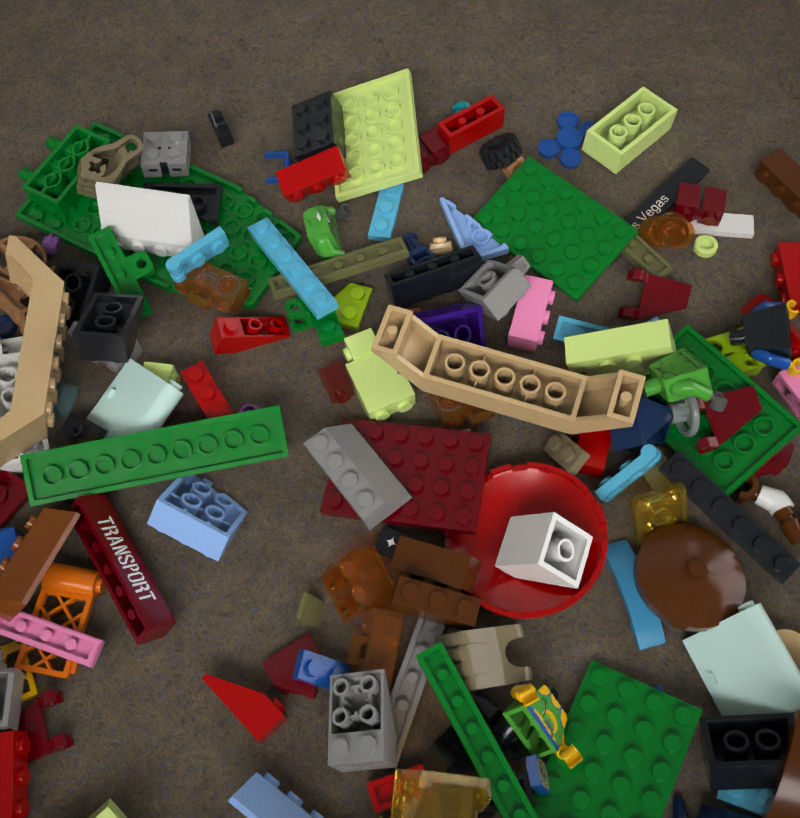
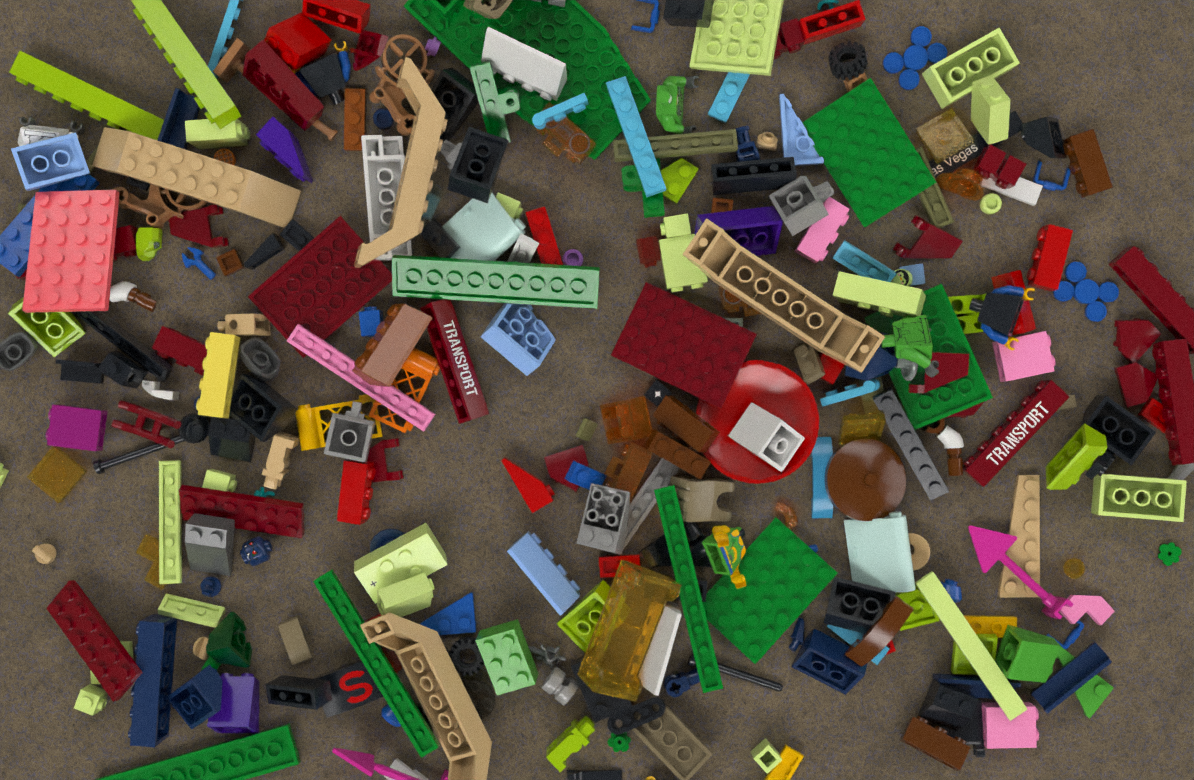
camera: 10 degrees right, 25 degrees up
(185, 408) = (523, 249): none -> white plate
(205, 198) = (565, 38): black wing -> none
(243, 333) = (586, 184): red slope -> none
(313, 175) = (675, 42): red brick -> none
(357, 473) = (646, 337): light grey slope -> none
(537, 775) = (713, 584): blue tile -> none
(607, 650) = (789, 514): none -> clear orange arm
(628, 193) = (944, 135): none -> clear yellow plate
(666, 150) = (990, 109): none -> yellowish green brick
(731, 169) = (1044, 136): none -> black slope
(761, 214) = (1047, 184): none -> blue piece

